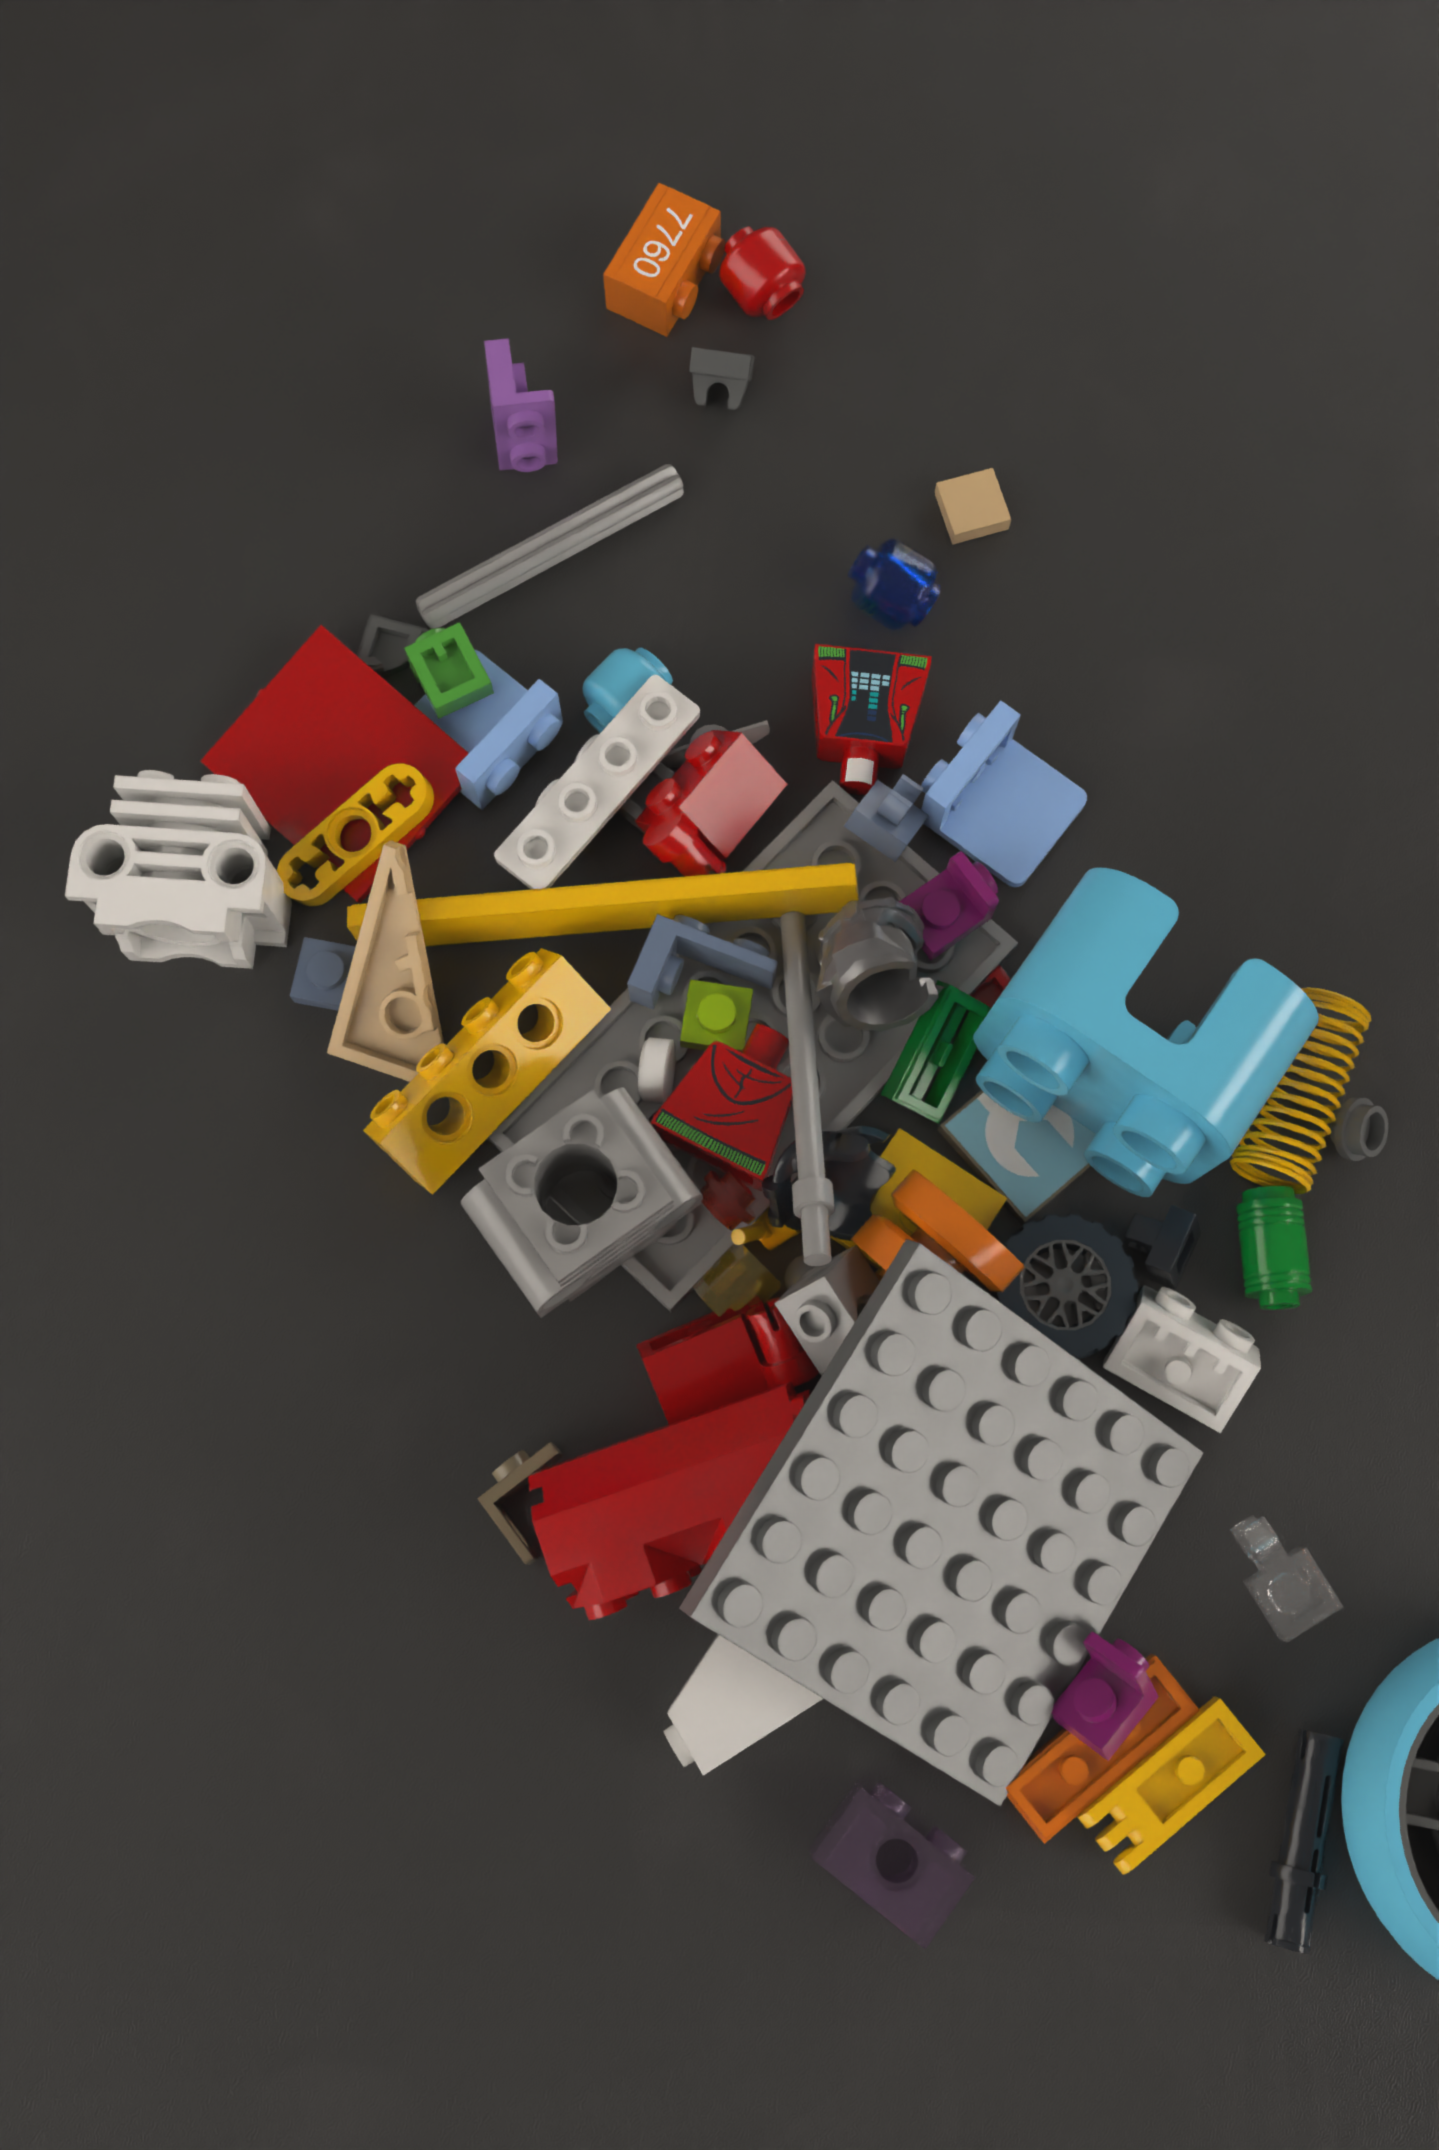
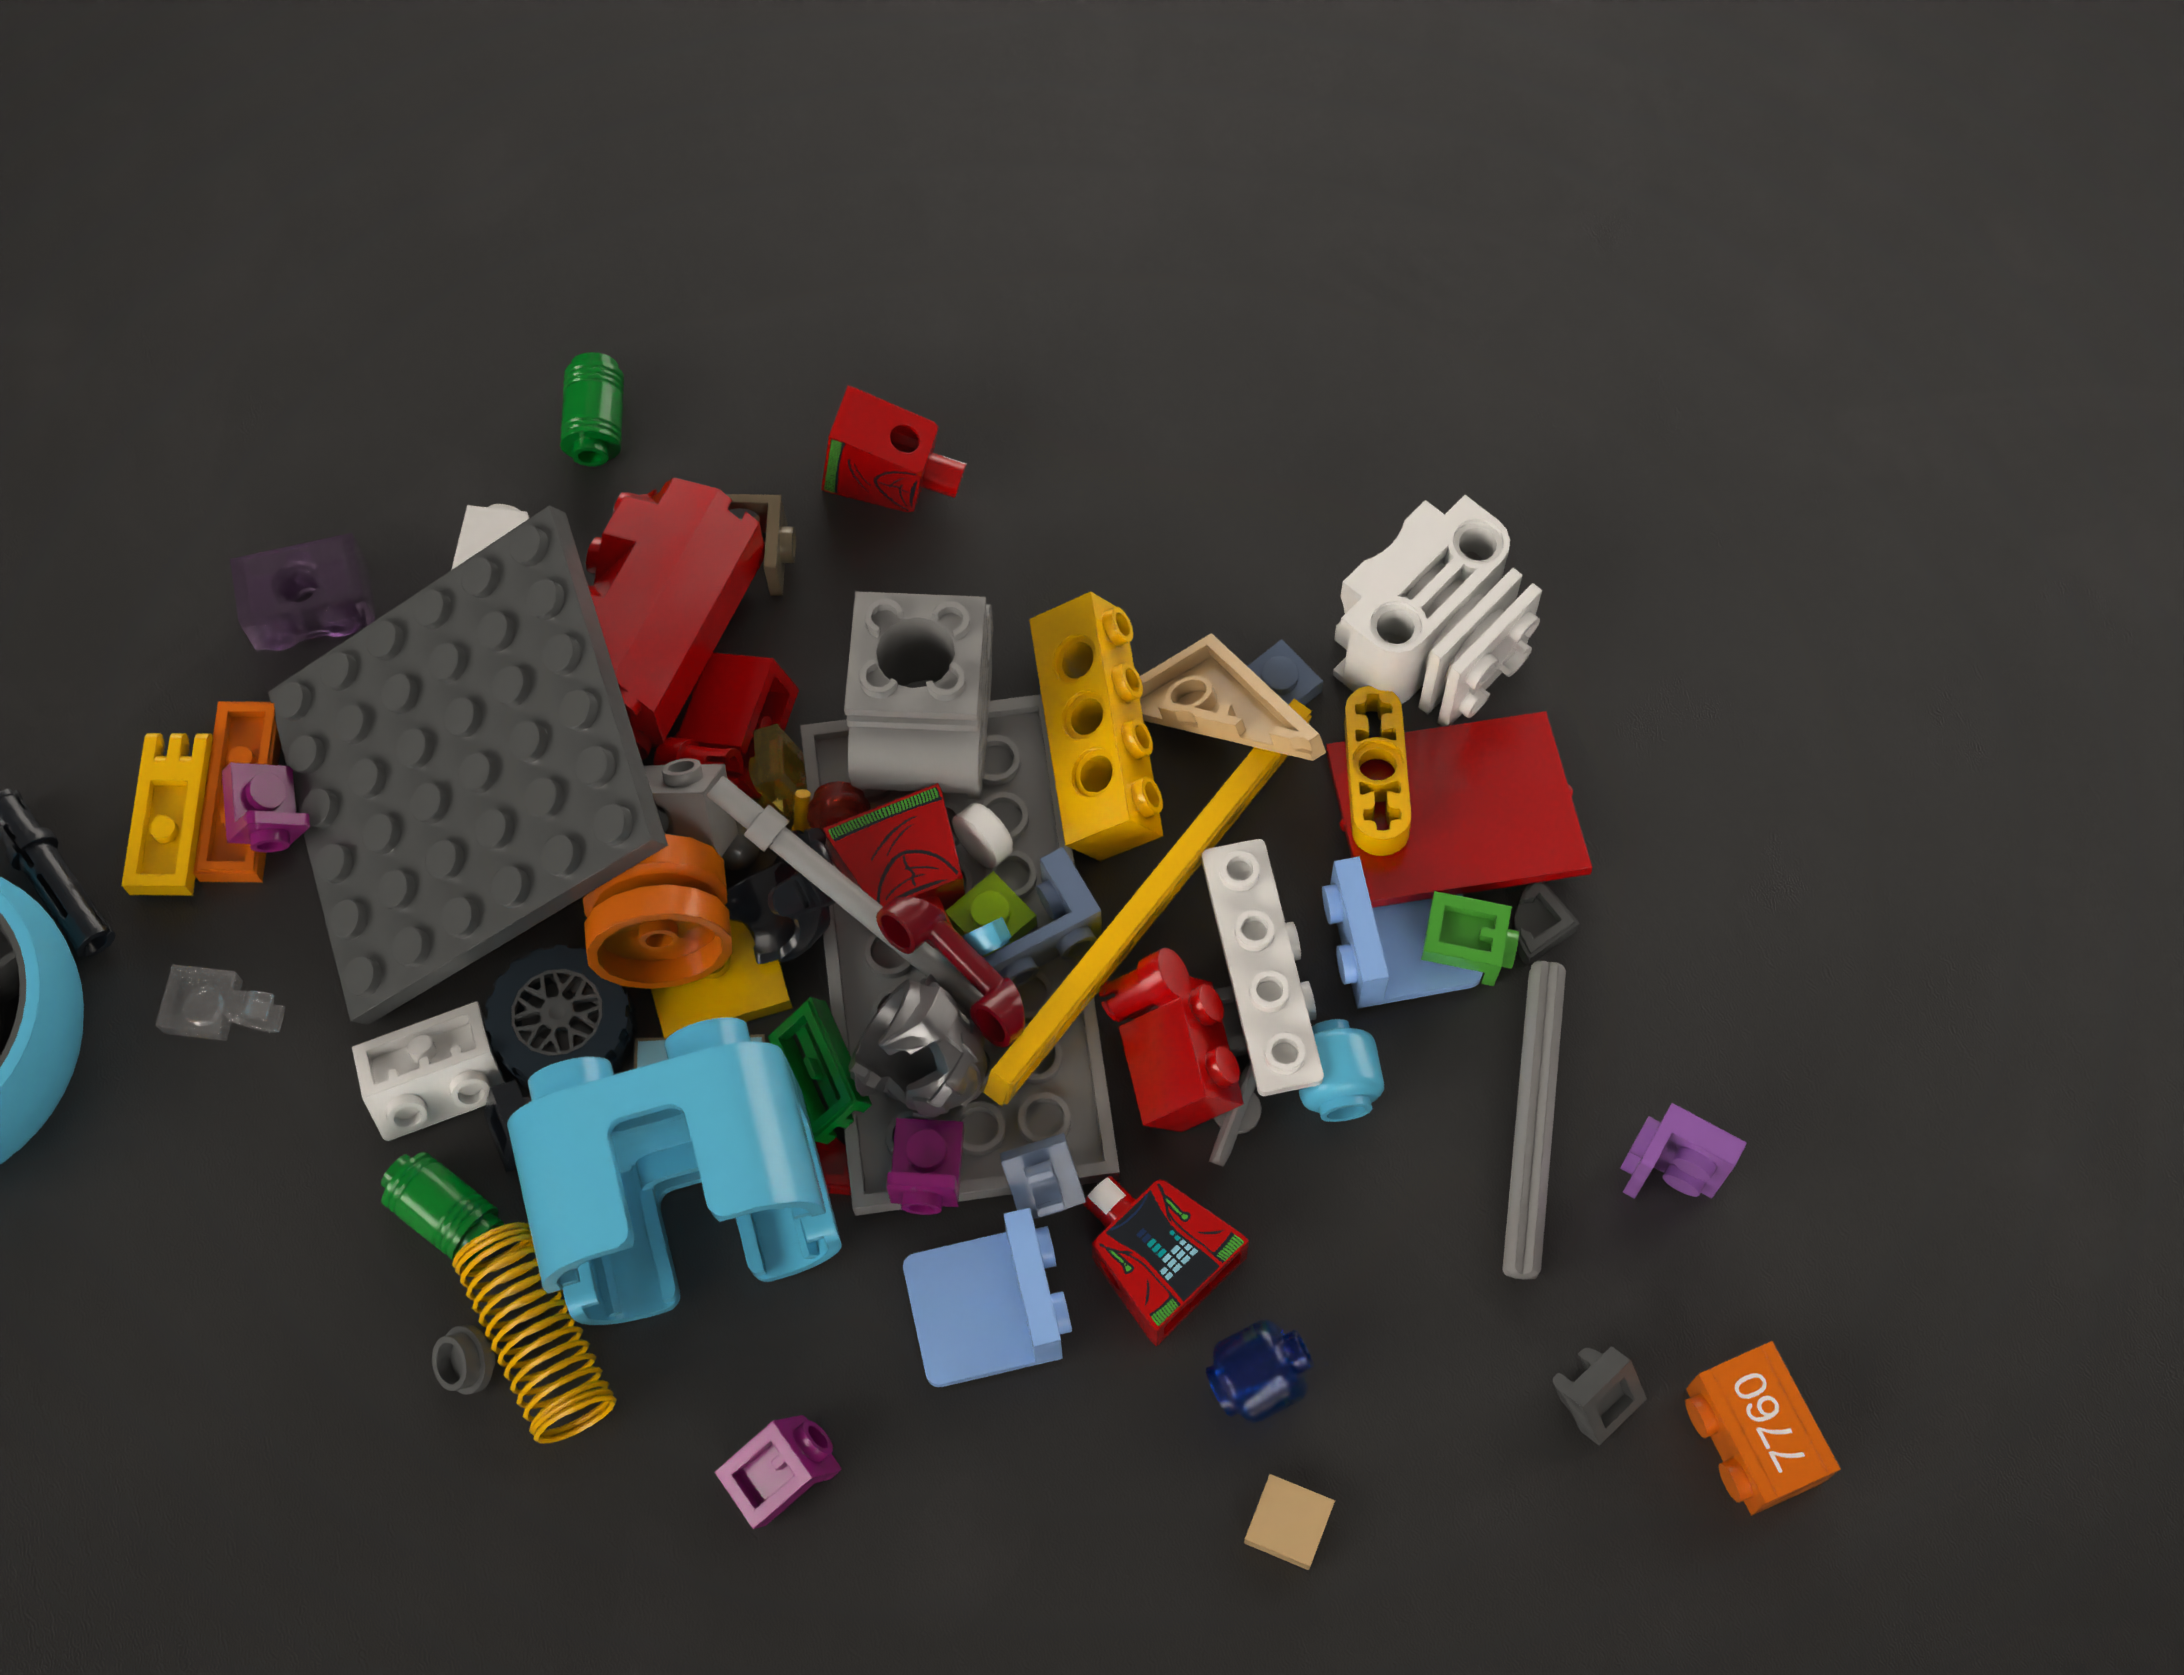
camera: 130 degrees right, 10 degrees down
(364, 1445) = (885, 454): none -> red torso
(511, 1766) = (592, 409): none -> green head
(754, 989) = (989, 937): none -> medium azure tile
(762, 272) = (1678, 1509): red head -> none
(802, 914) = (913, 921): none -> dark red bar
(1234, 847) = (778, 1468): none -> bracket

